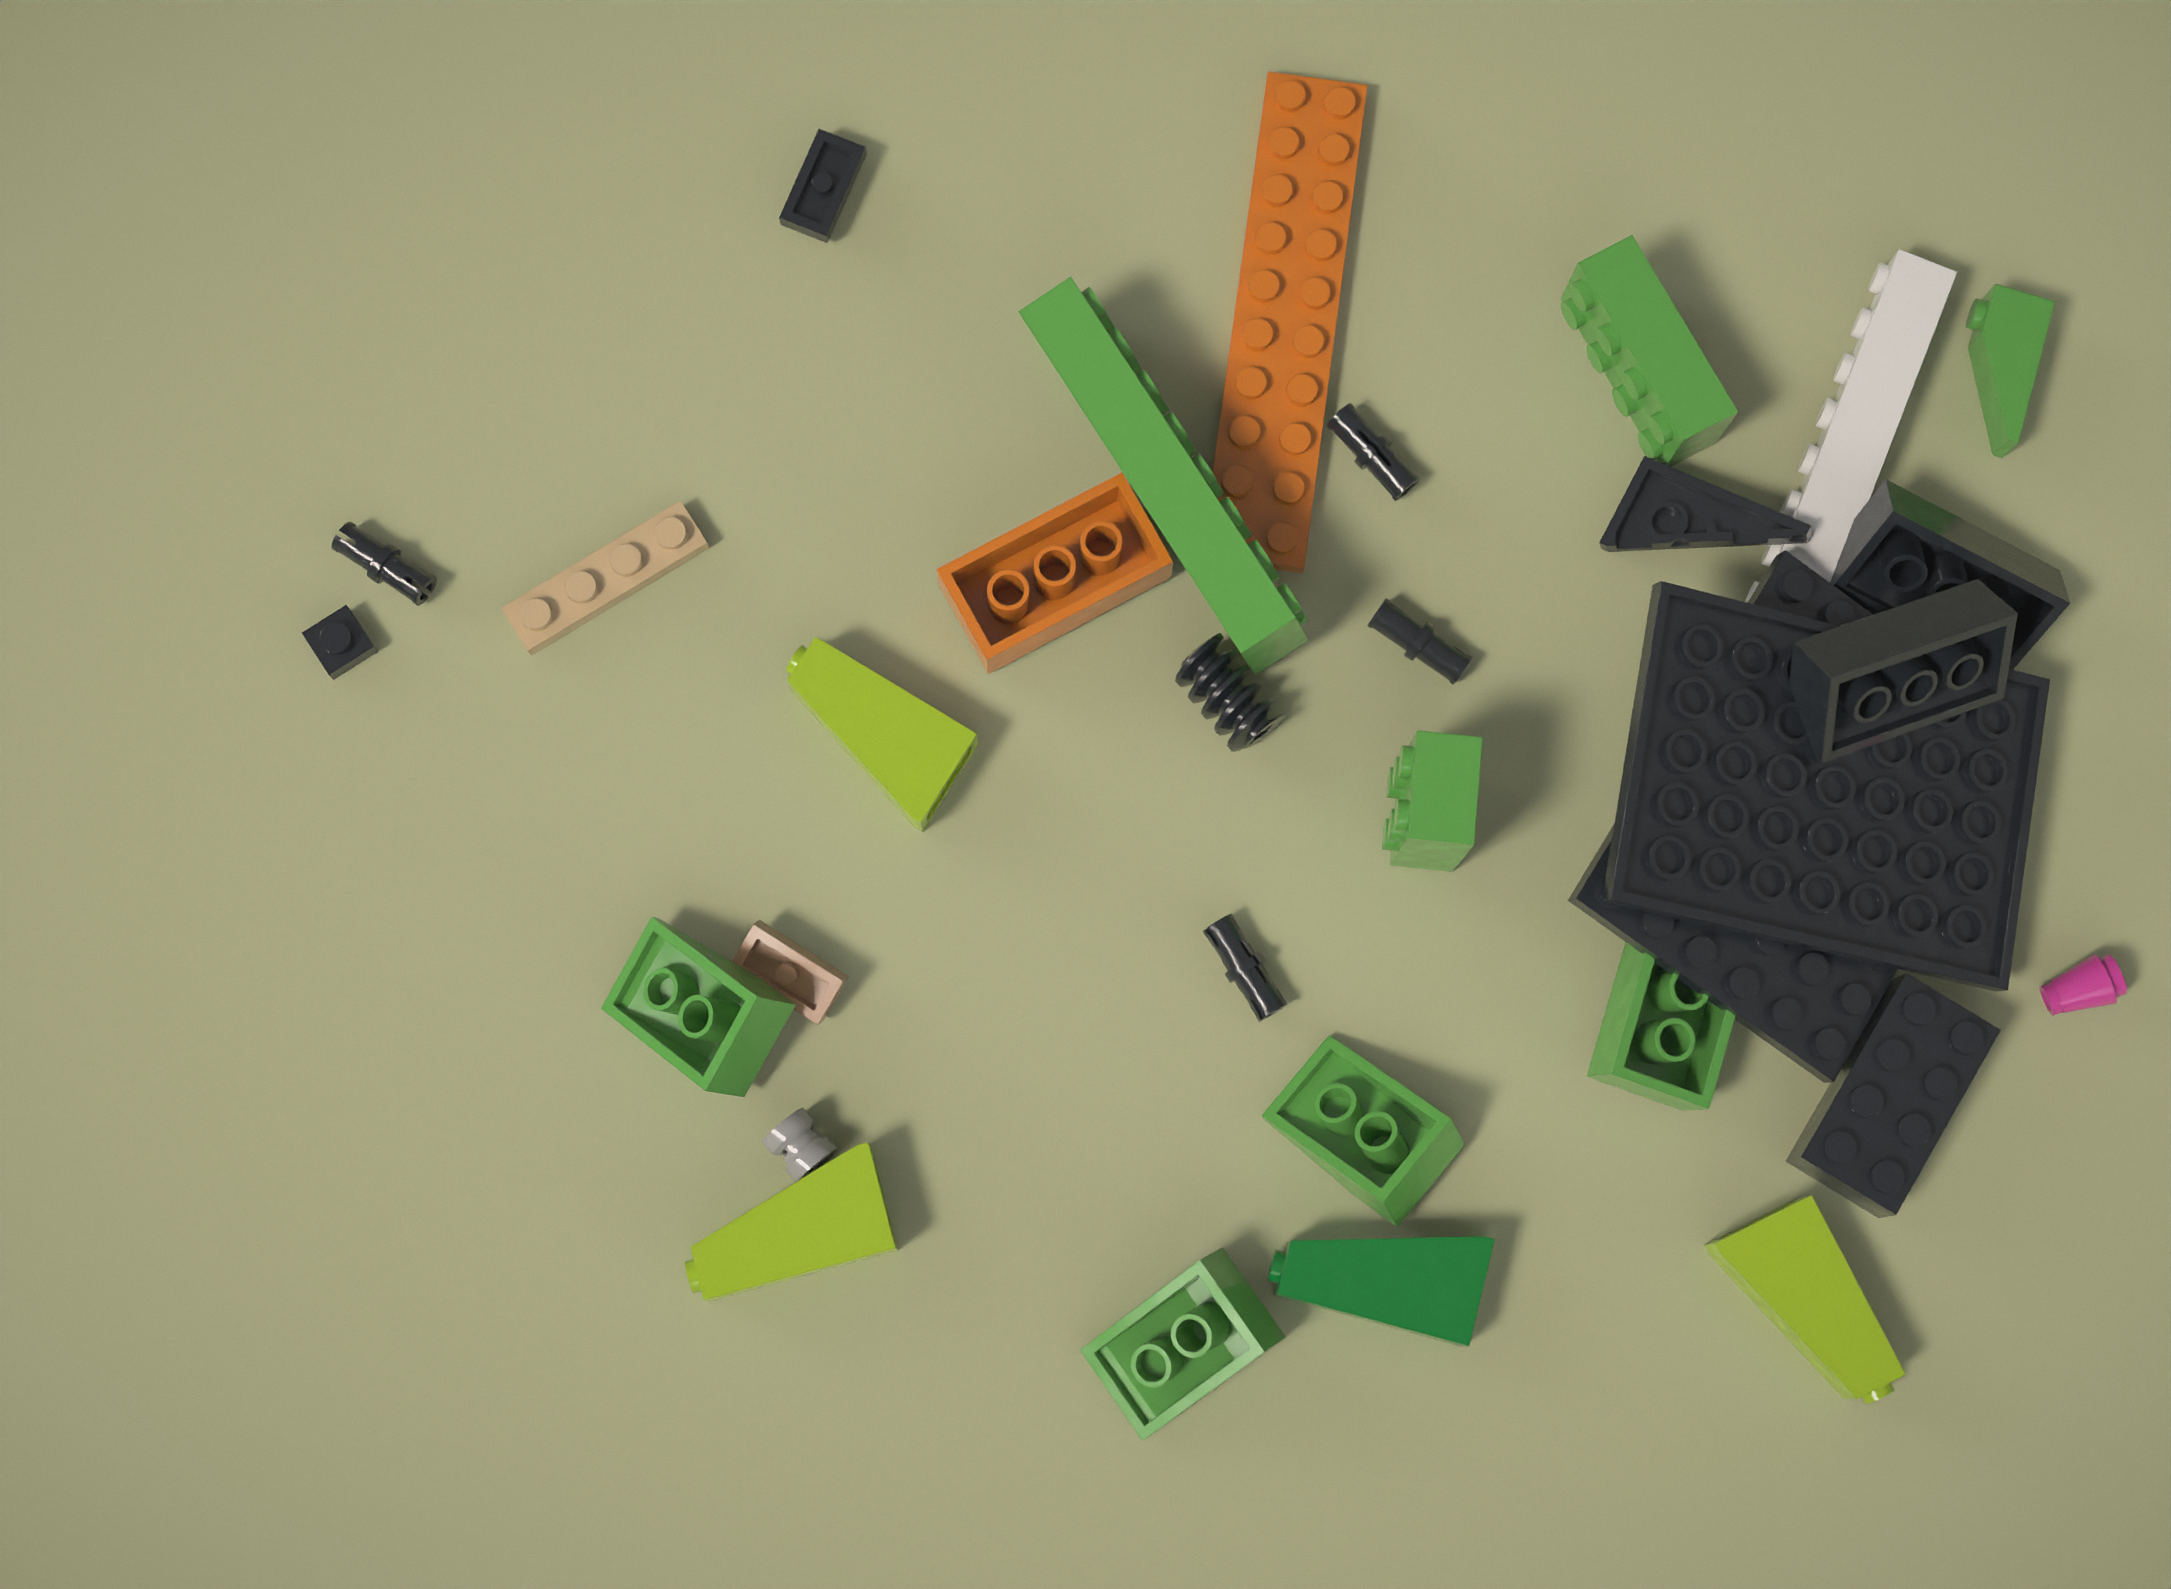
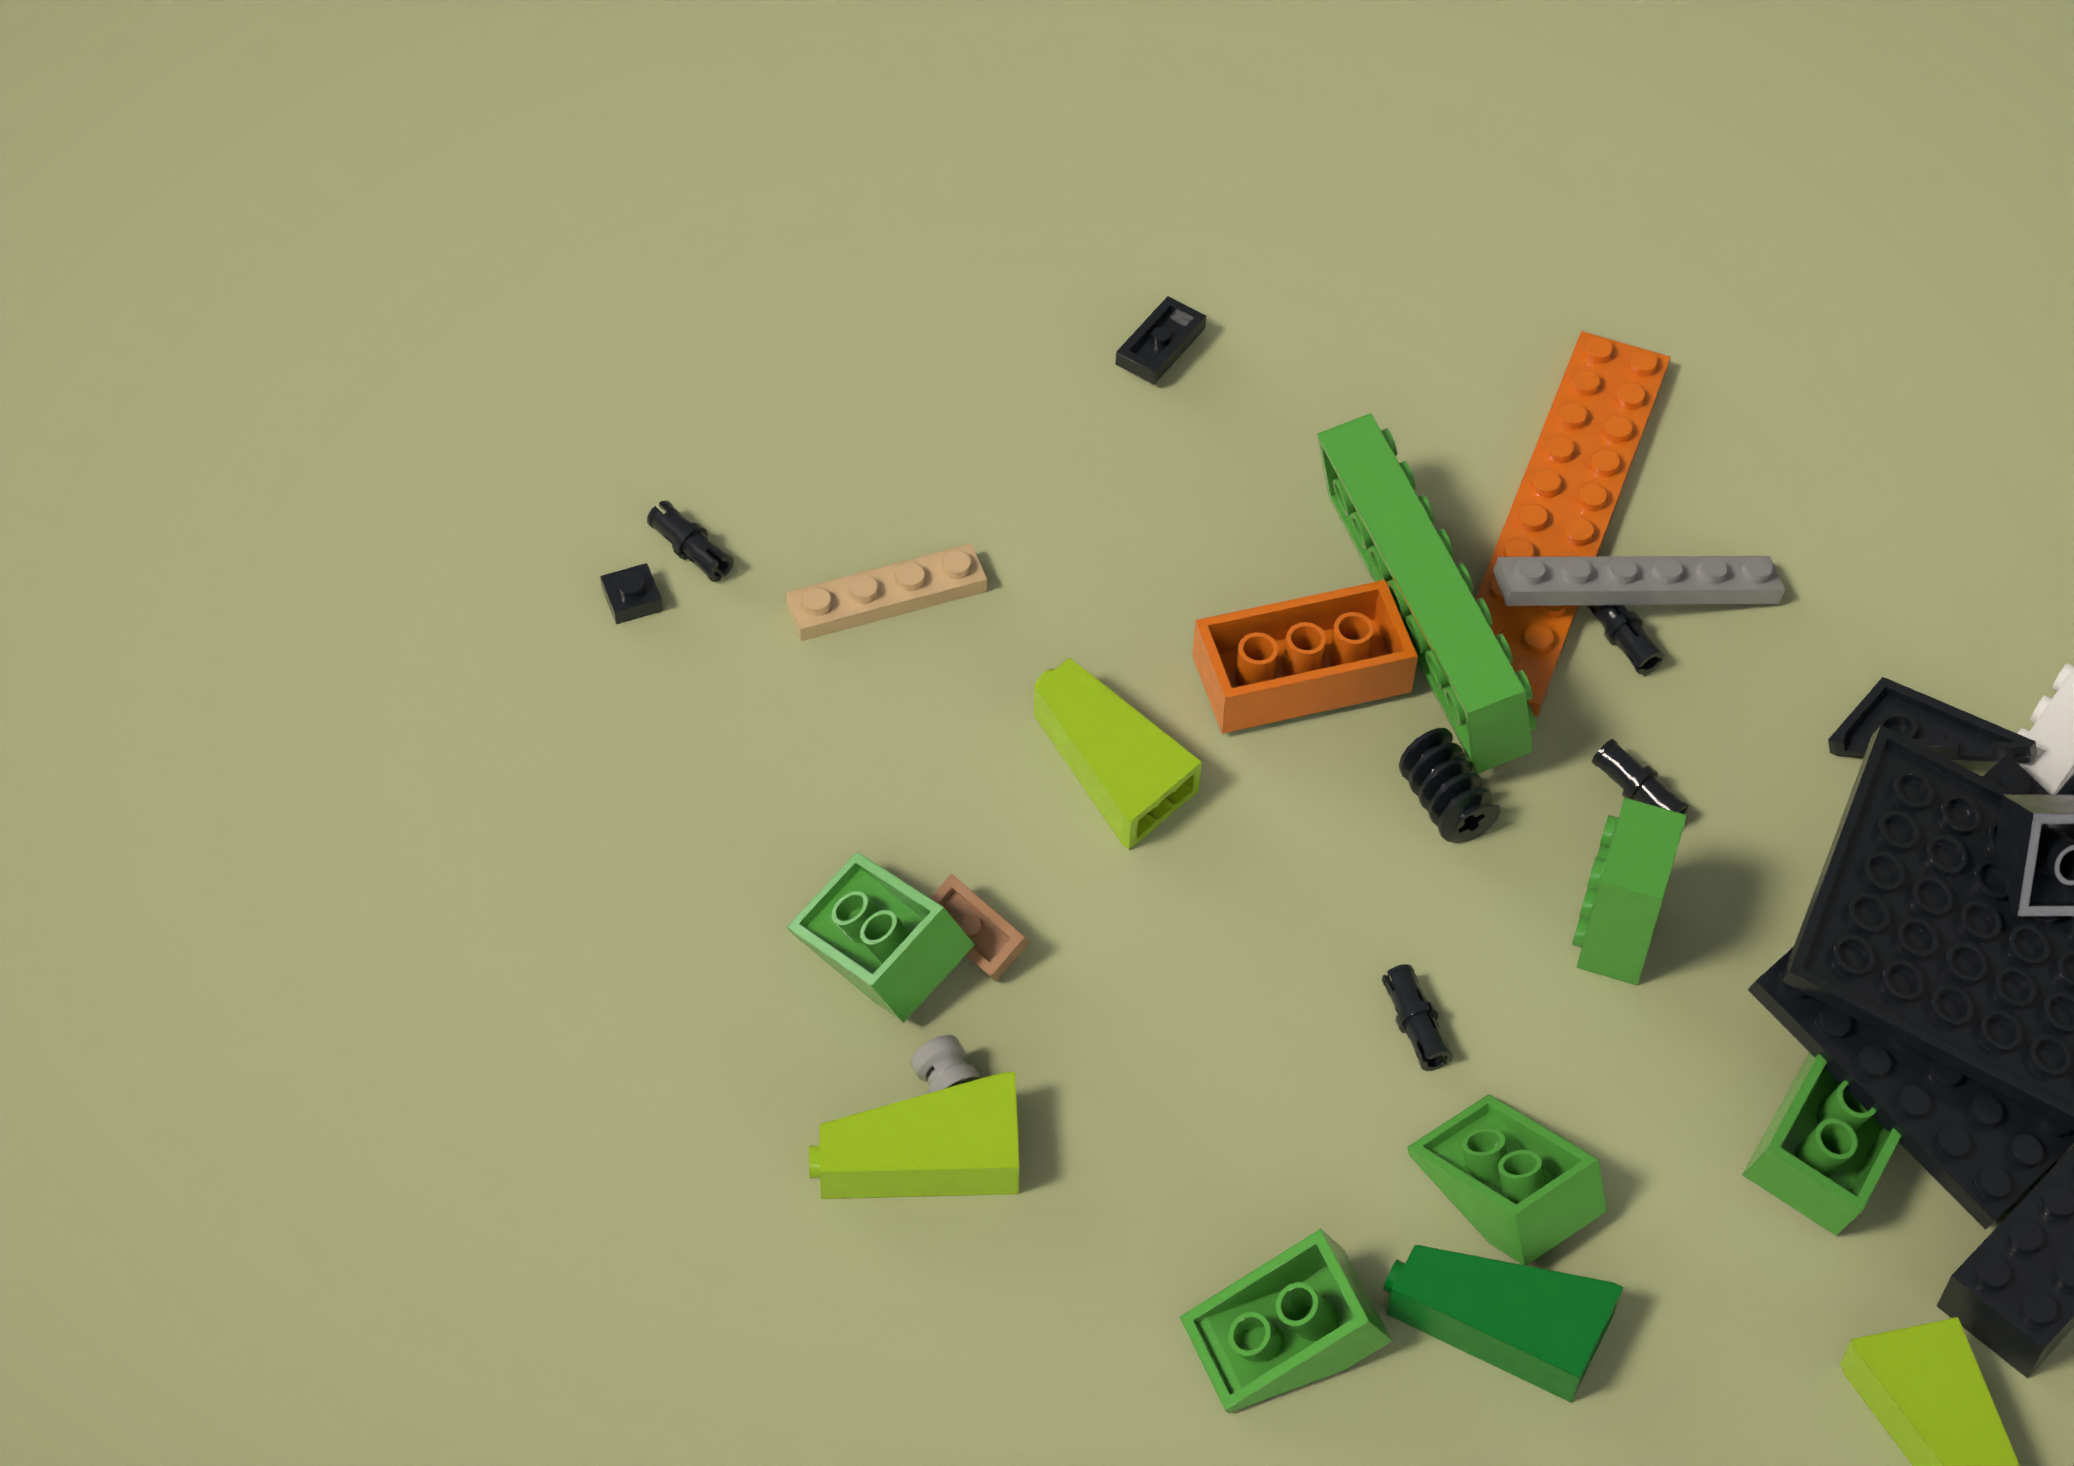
camera: 15 degrees right, 25 degrees down
(1379, 397) = (1638, 580): none -> light grey plate
(1646, 353) = (1898, 589): bright green brick -> none

